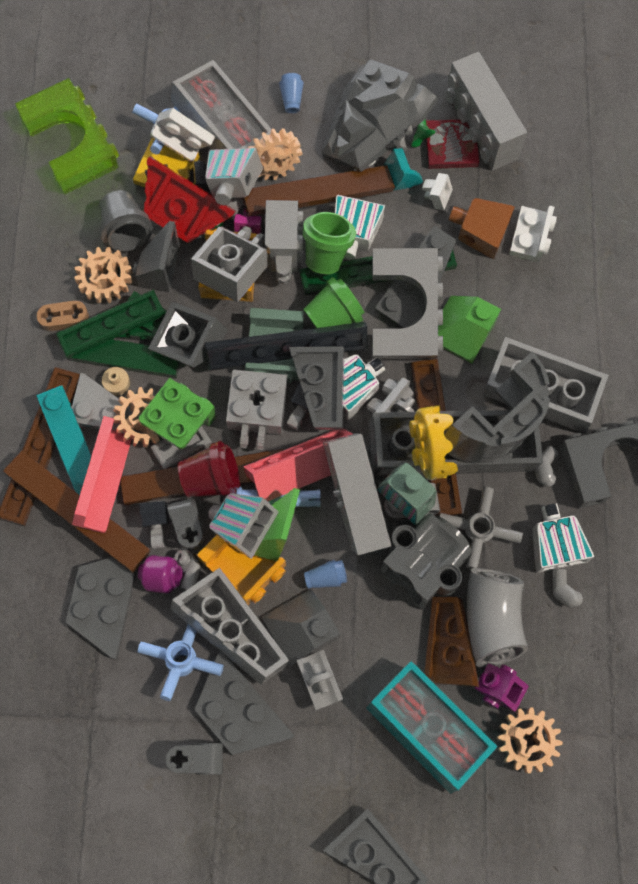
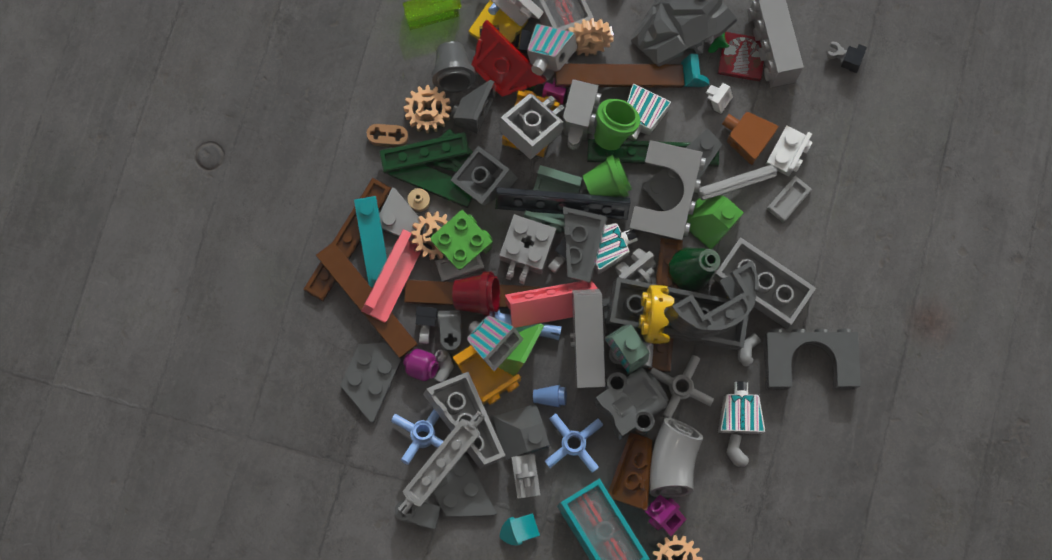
camera: 15 degrees right, 5 degrees up
(211, 688) = (441, 462): none -> light grey plate
(326, 749) = (519, 529): none -> teal tile
(375, 615) = (565, 449): none -> light blue bar
(460, 383) = (693, 267): none -> dark green cone
(483, 279) = (737, 182): none -> light grey axle
(546, 286) = (789, 199): none -> light grey tile
(574, 118) = (852, 56): none -> black piece

